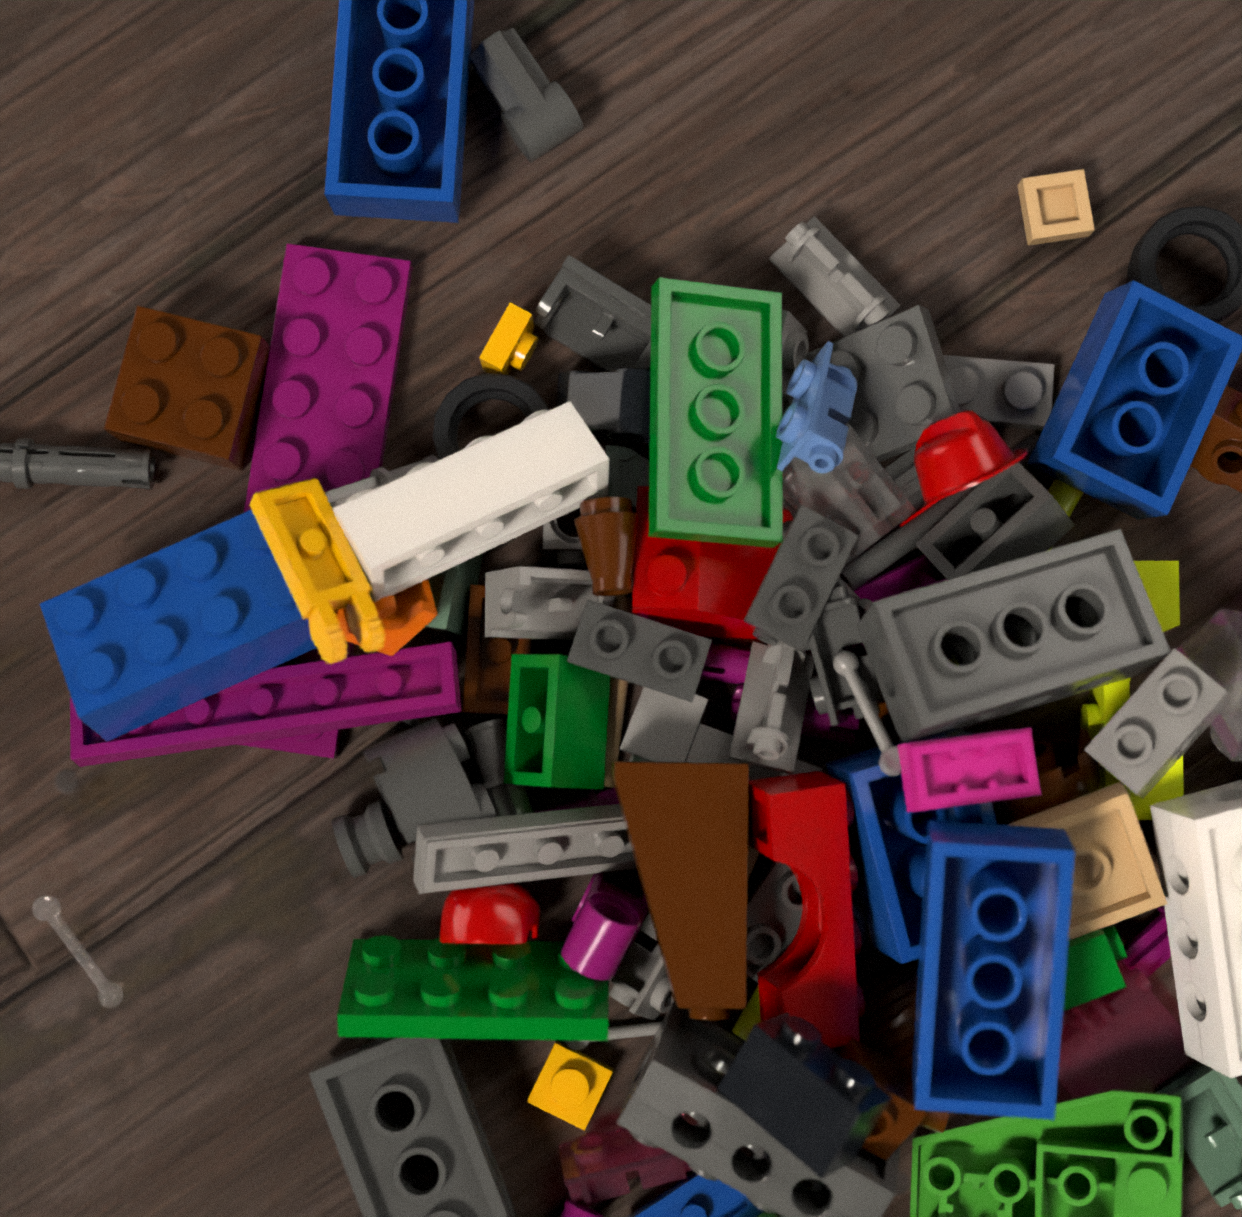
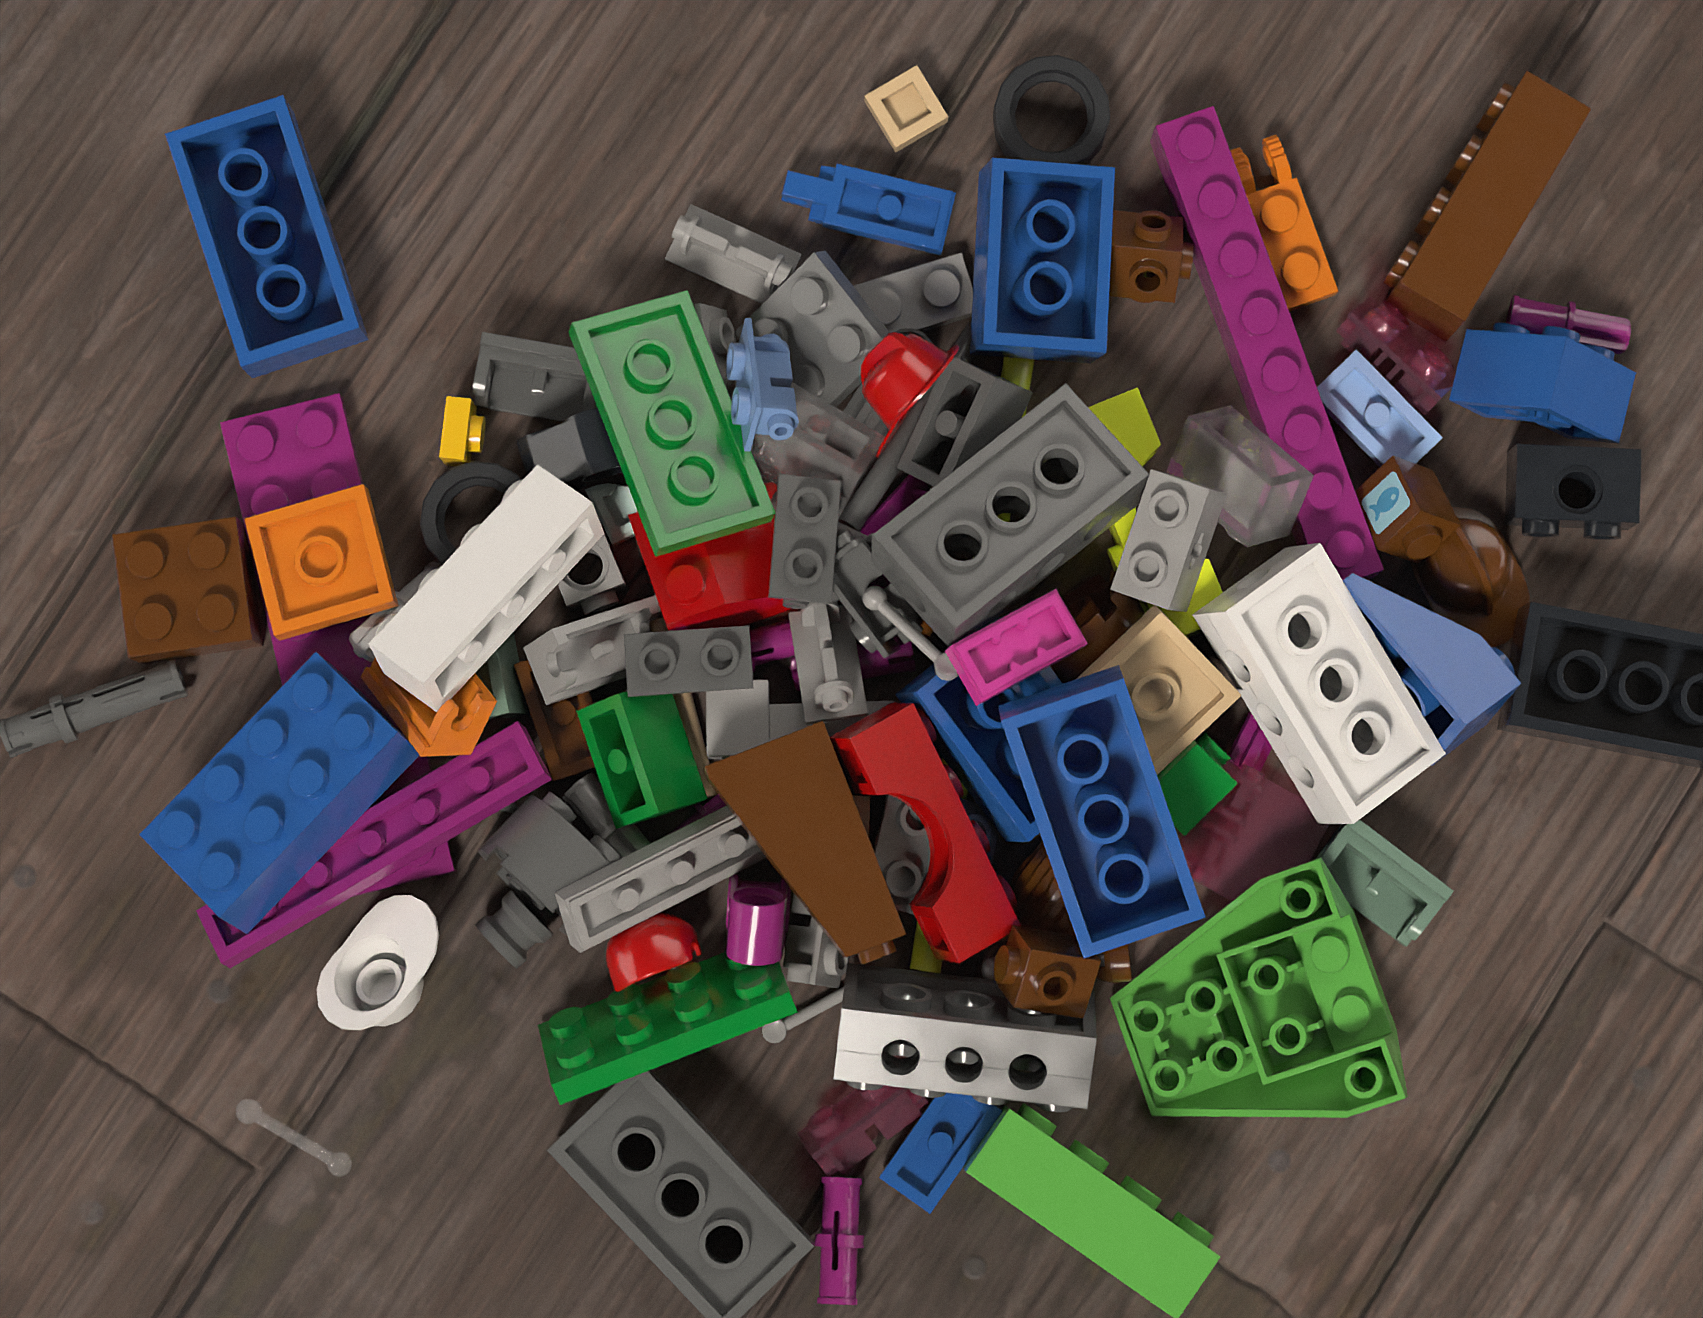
camera: 20 degrees left, 0 degrees up
(223, 824) = (380, 966): none -> white piece
(318, 566) = (376, 699): yellow hinge -> none
(325, 412) = (321, 562): none -> orange plate
(533, 108) = (394, 208): dark grey piece -> none
(570, 1085) = (784, 1075): yellow plate -> none
(608, 542) = (622, 576): reddish brown cone -> none
(804, 1093) = (983, 983): black brick -> none
(988, 286) = (874, 206): none -> blue hinge

